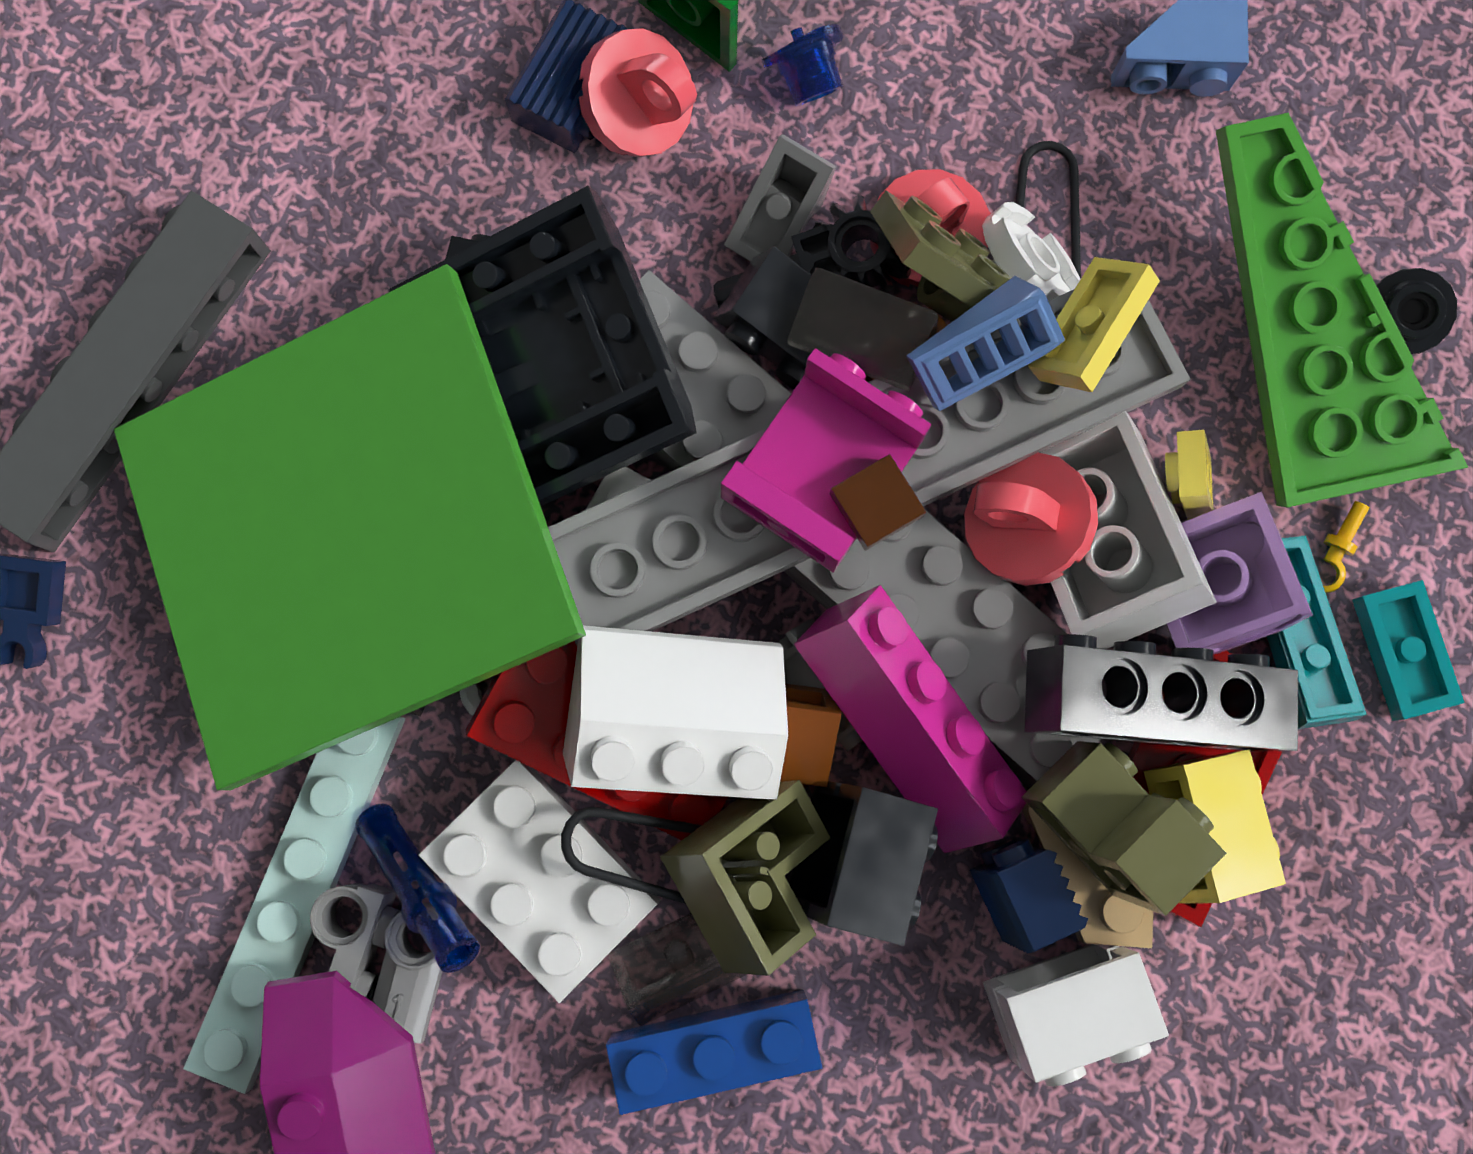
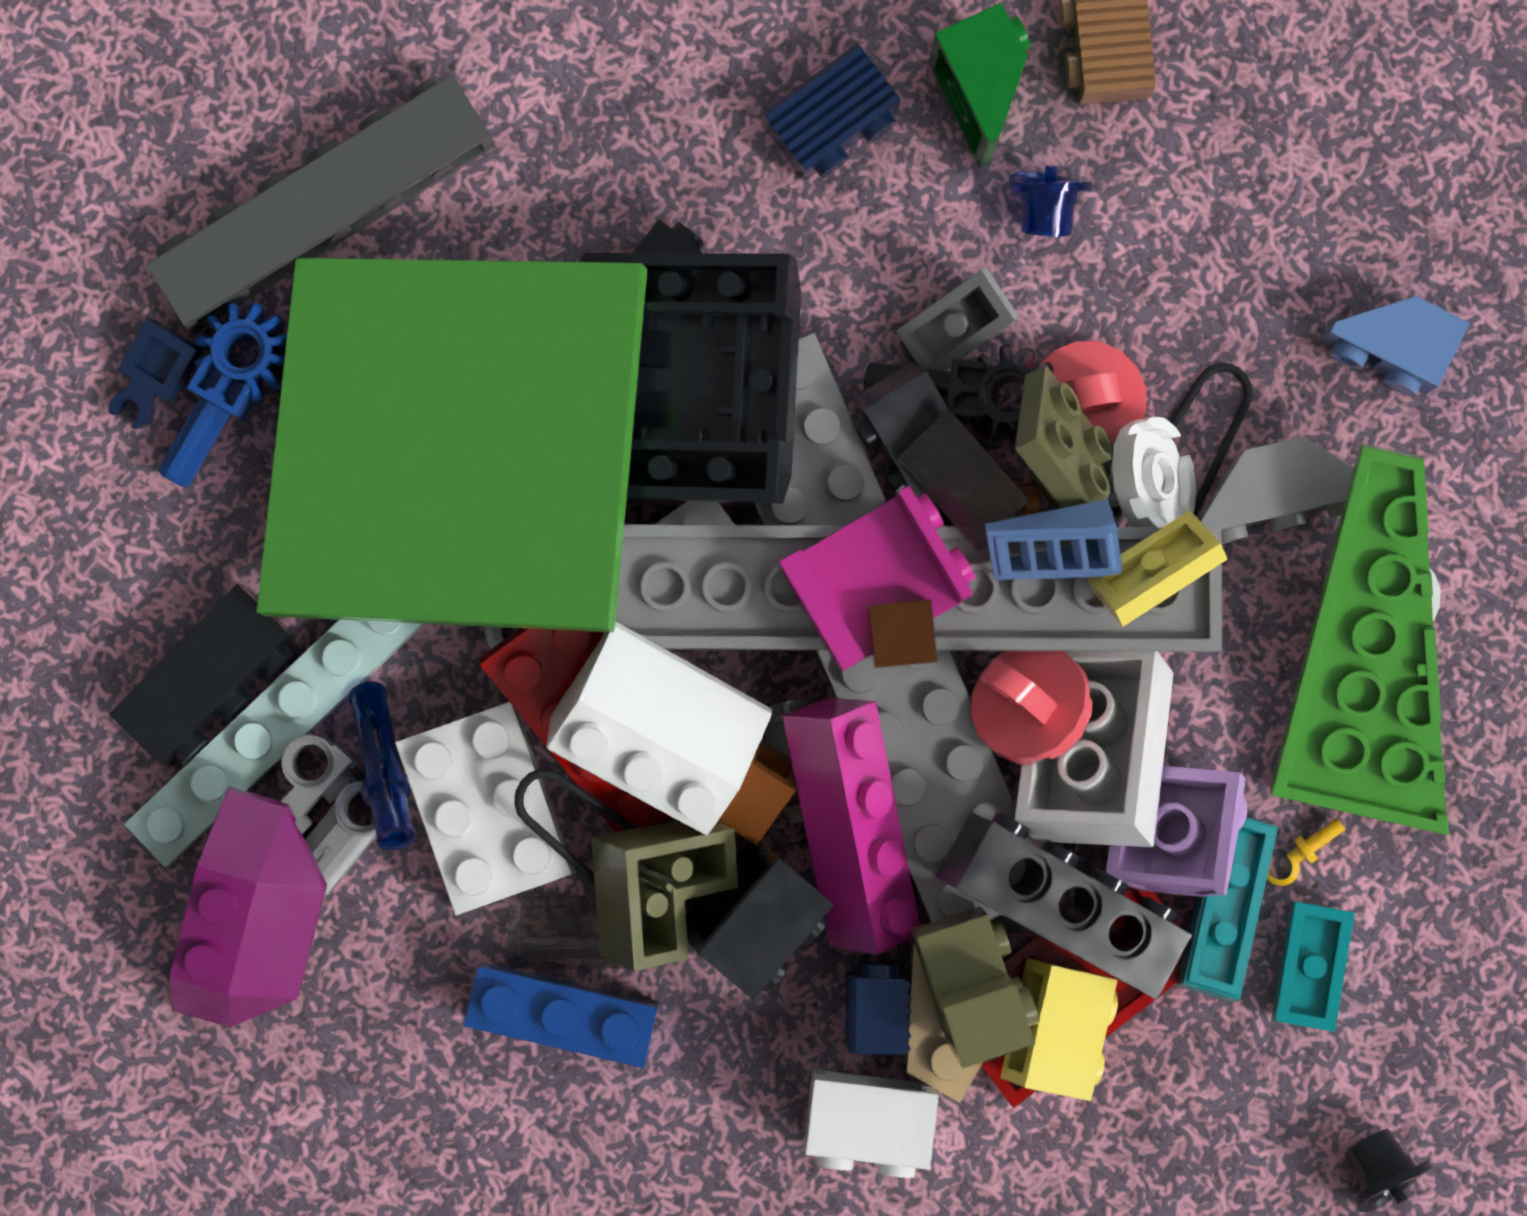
camera: 25 degrees right, 5 degrees up
(99, 585) = (224, 386): none -> blue gear
(199, 883) = (204, 678): none -> black brick
(636, 93) = (881, 160): coral tile -> none
(1154, 212) = (1277, 487): none -> light grey slope
(1190, 473) = (1196, 730): light yellow plate -> none
(1420, 306) = (1477, 674): black piece -> none

